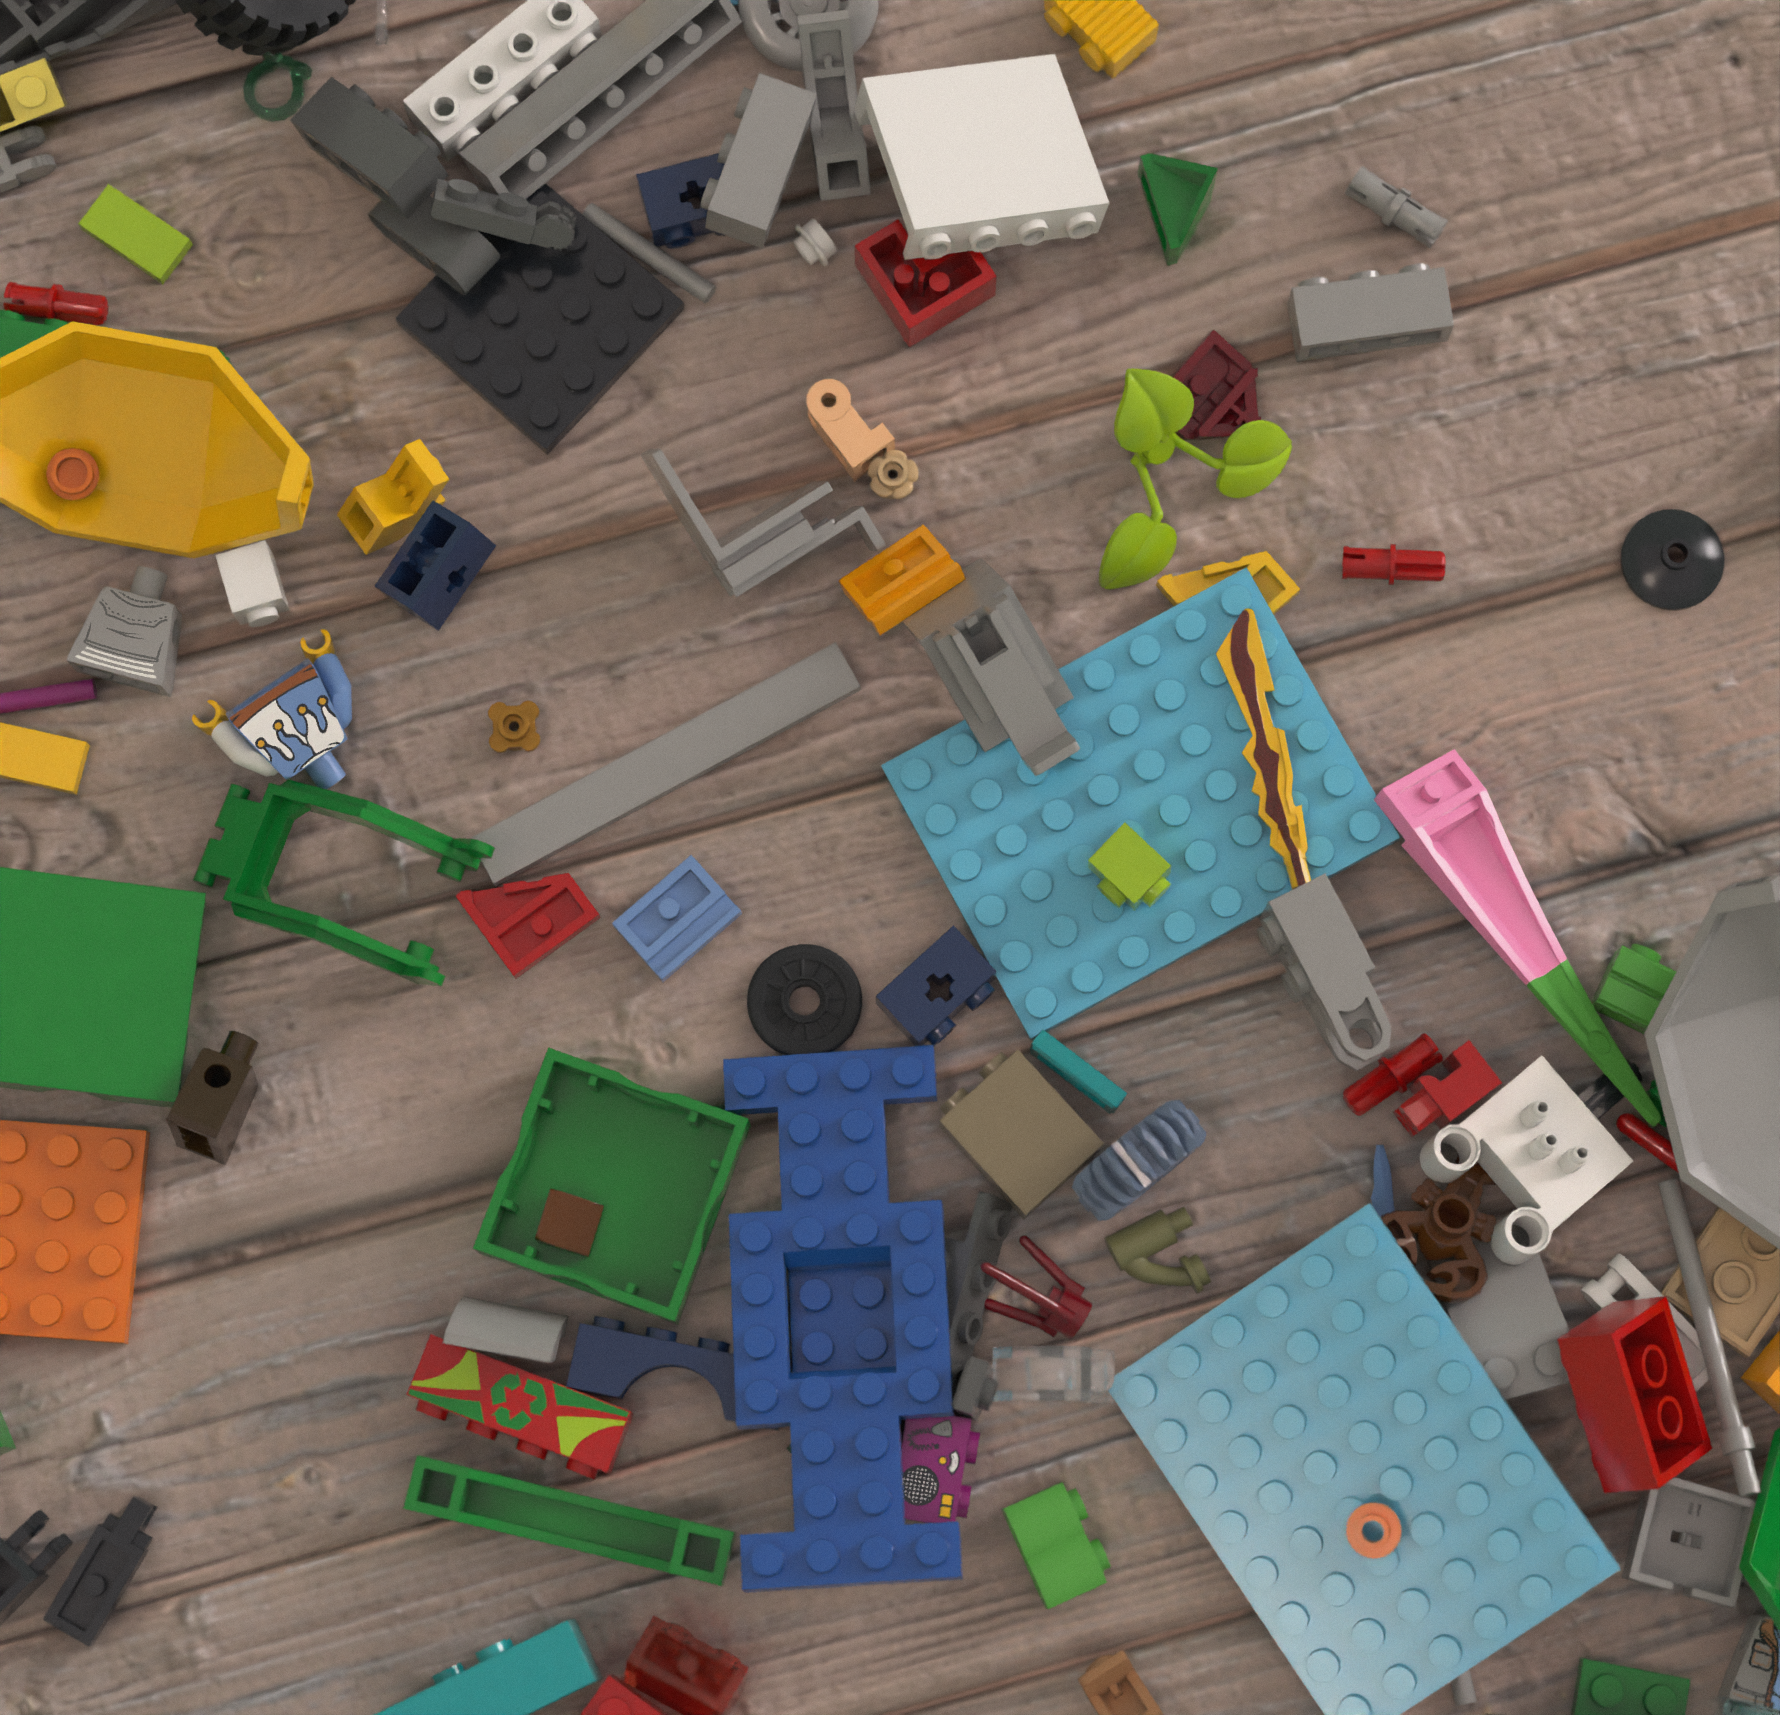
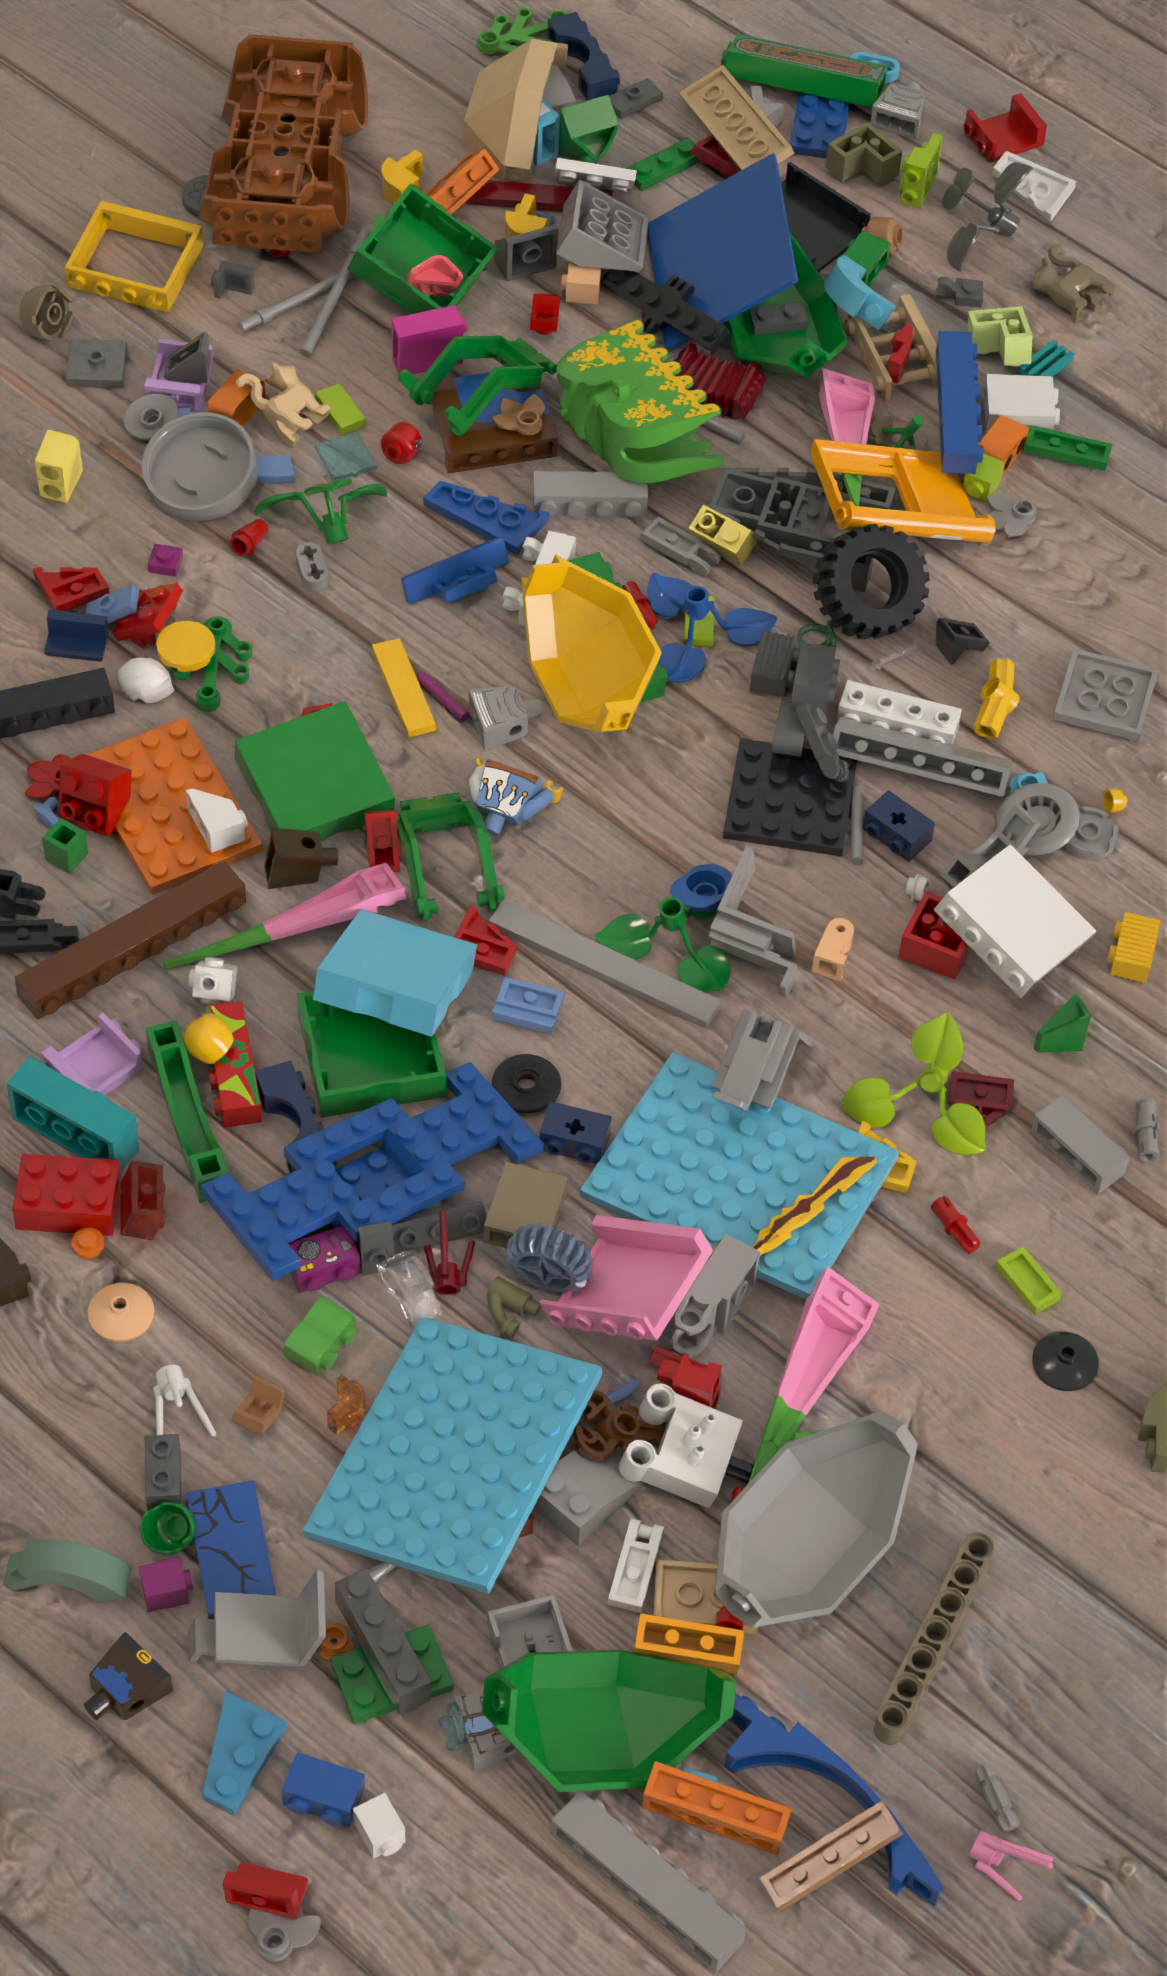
camera: 55 degrees right, 25 degrees down
(69, 241) = (672, 595): none -> blue plant
(73, 474) = (561, 650): orange plate -> none
(76, 1181) = (216, 819): none -> white slope
(205, 1427) = (130, 940): none -> reddish brown brick
(253, 584) = (563, 748): white brick -> none
(262, 955) = (382, 839): none -> red slope
(293, 181) = (773, 664): none -> dark grey brick
(334, 1072) = (361, 890): none -> bright pink plate
(361, 1351) = (222, 975): none -> white brick
(389, 1604) = (98, 1058): none -> lavender panel
(394, 502) = (647, 783): yellow brick -> none
(435, 565) = (628, 811): dark blue brick -> none
(474, 1425) = (208, 1038): none -> yellow hair
(506, 1329) = (263, 1028): light grey slope -> none
(525, 737) = (574, 897): pearl gold plate -> none
(526, 1084) = (395, 972): none -> medium azure tile
(569, 1222) = (339, 1035): reddish brown slope -> none
(643, 701) = (630, 935): none -> green plant
(653, 553) = (702, 887): none -> blue piece
(758, 159) = (935, 829): light grey brick -> none
(892, 488) = (823, 988): tan plate -> none
(901, 579) = (775, 1006): light orange plate -> none
(1077, 1072) = (578, 1210): teal tile -> none
(1130, 870) = (698, 1173): lime brick -> none
(1199, 1580) = (348, 1408): none -> clear orange bracket
(1254, 1066) = (635, 1278): none -> bright pink panel
(1373, 1512) = (430, 1468): orange plate -> none
(1528, 524) = (1028, 1280): none -> lime tile
(1634, 1395) = (588, 1553): red brick -> none
(1735, 1439) = (602, 1623): light grey bar -> none

